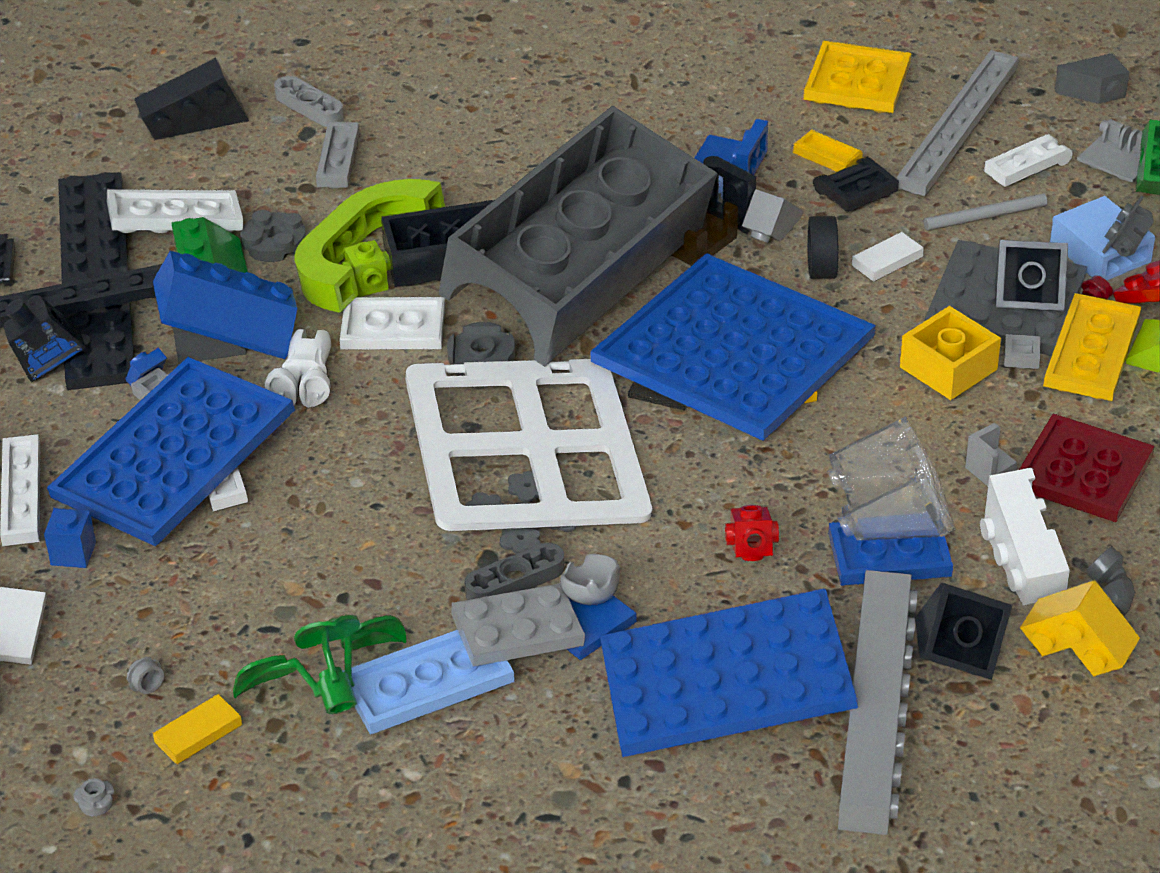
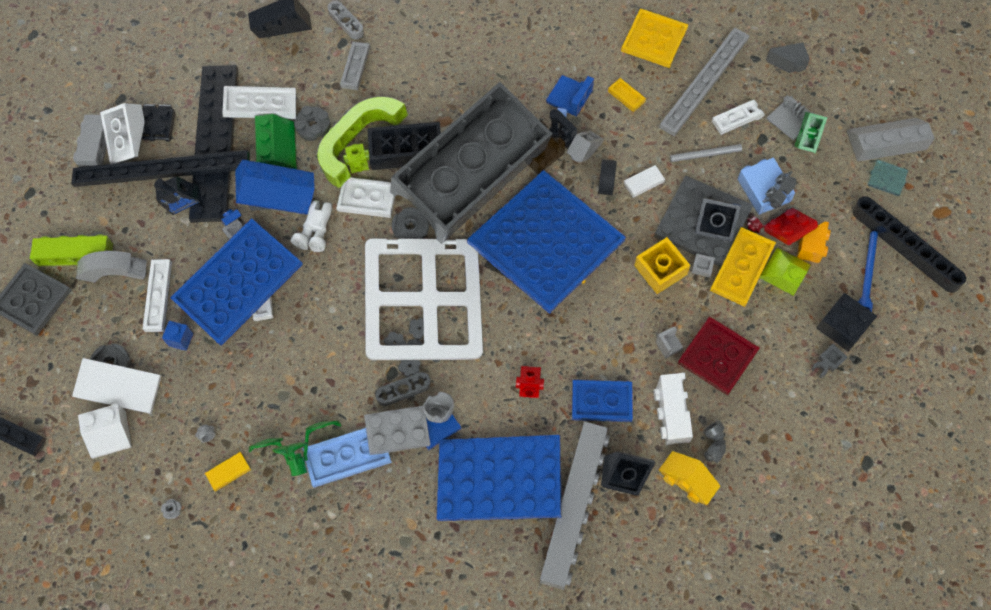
camera: 10 degrees right, 25 degrees up
(857, 184) = (639, 128): black plate -> none
(890, 487) = (610, 366): clear windscreen -> none

